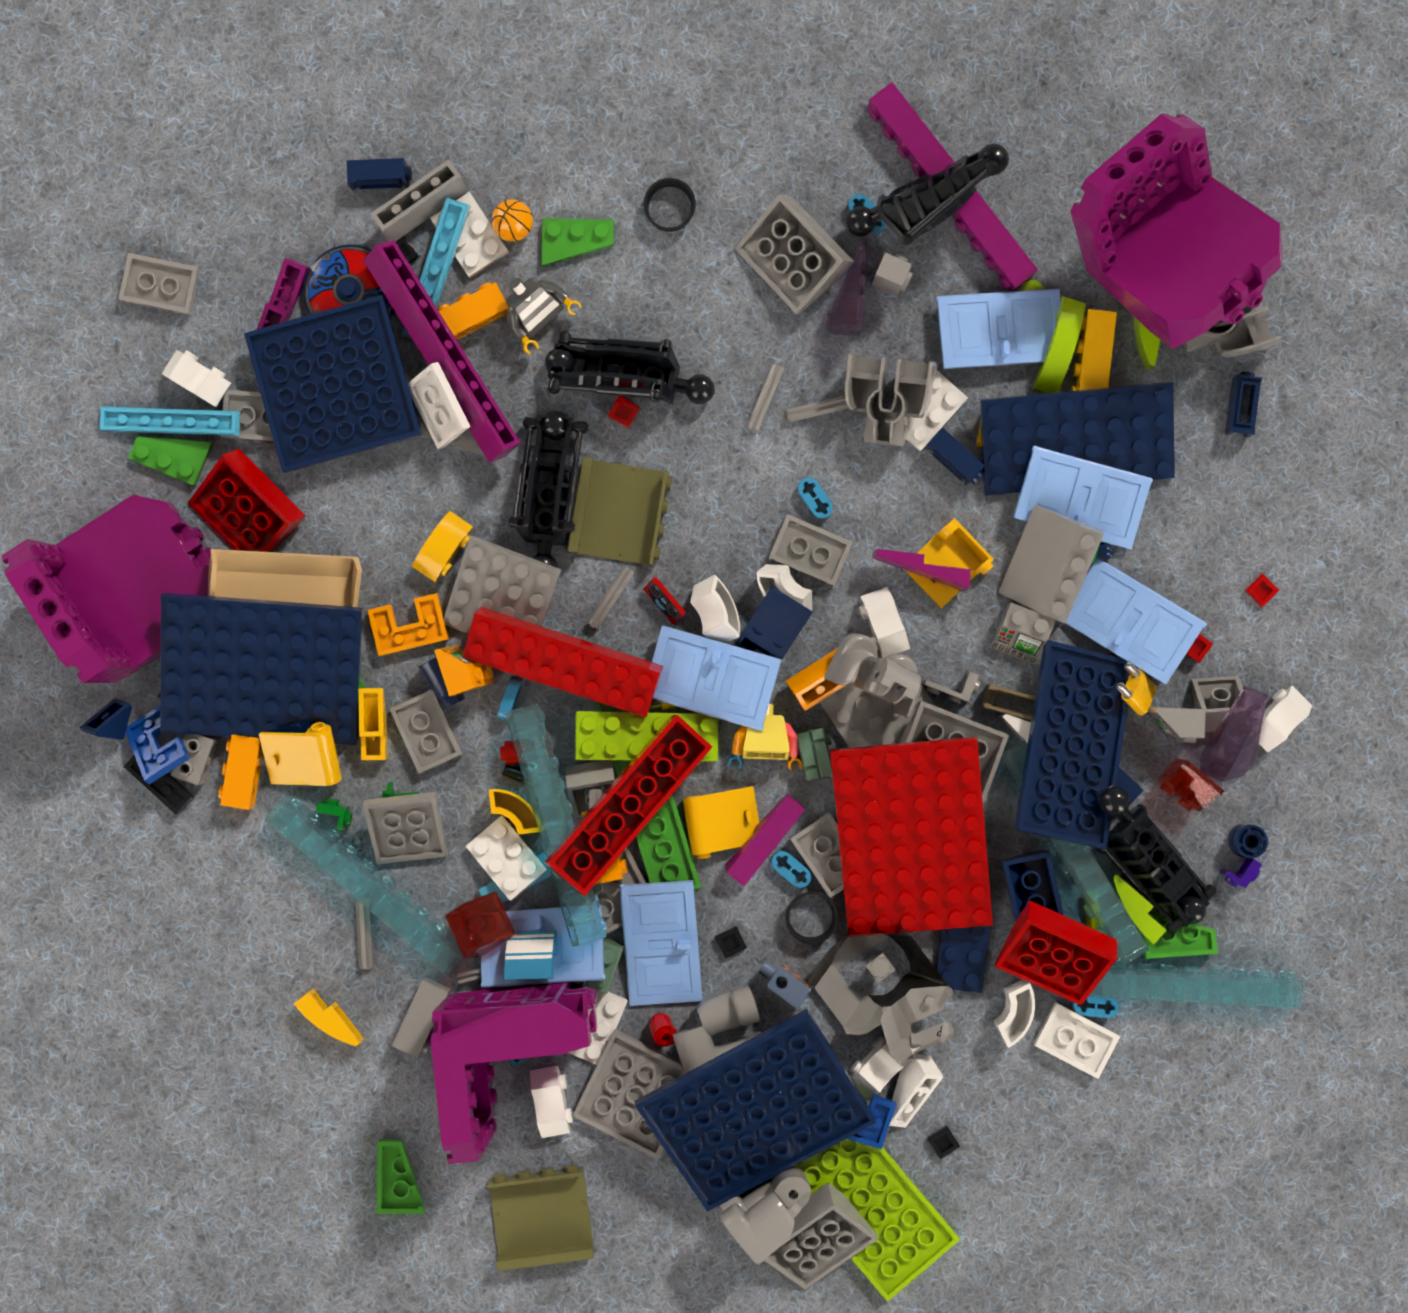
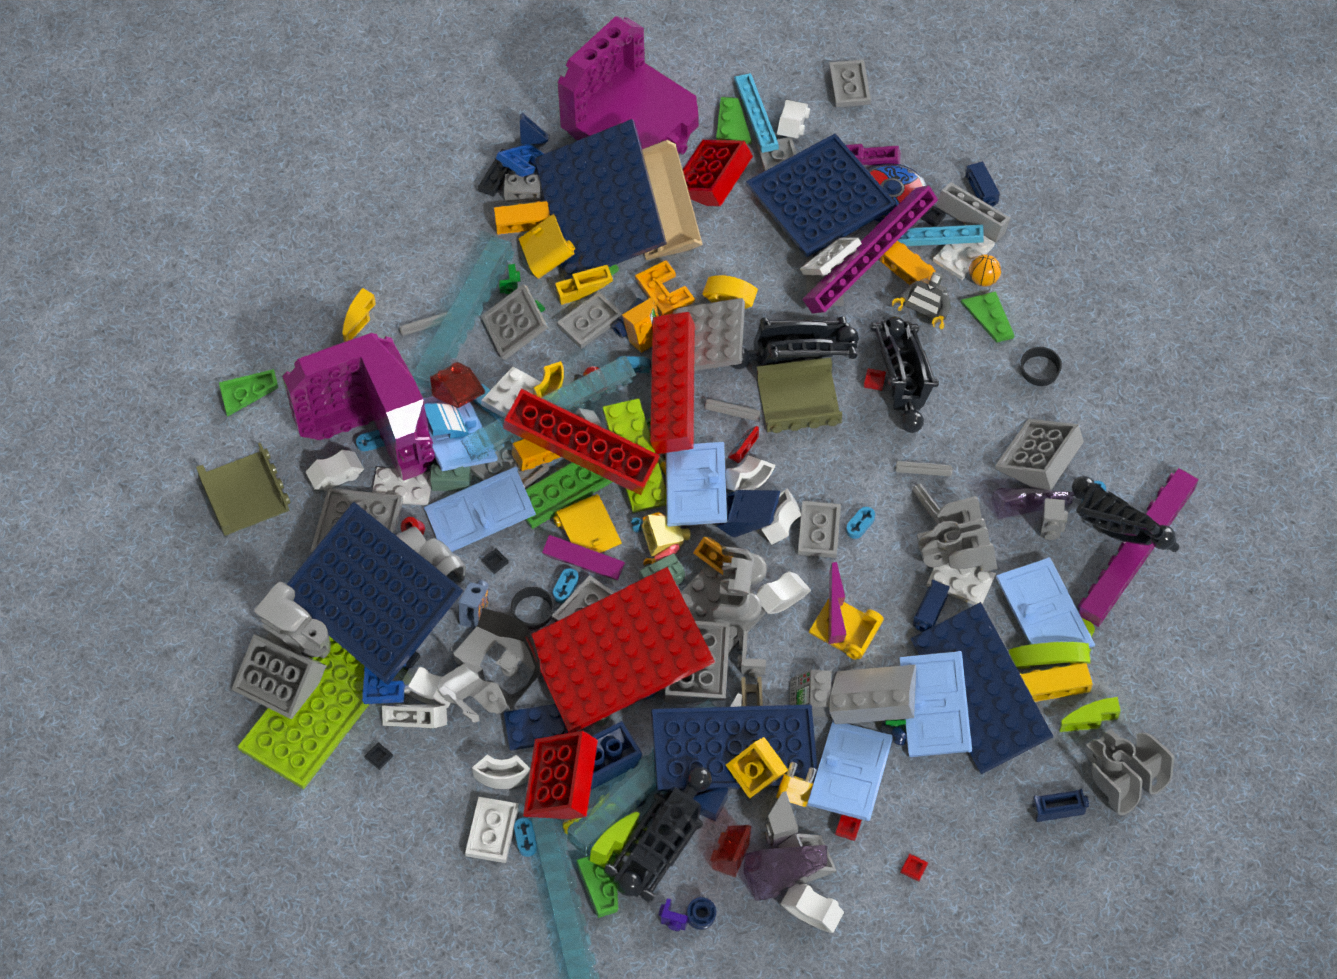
camera: 75 degrees right, 30 degrees down
(1112, 727) = (756, 767): none -> yellow slope
(1172, 235) = (1156, 694): magenta piece -> none

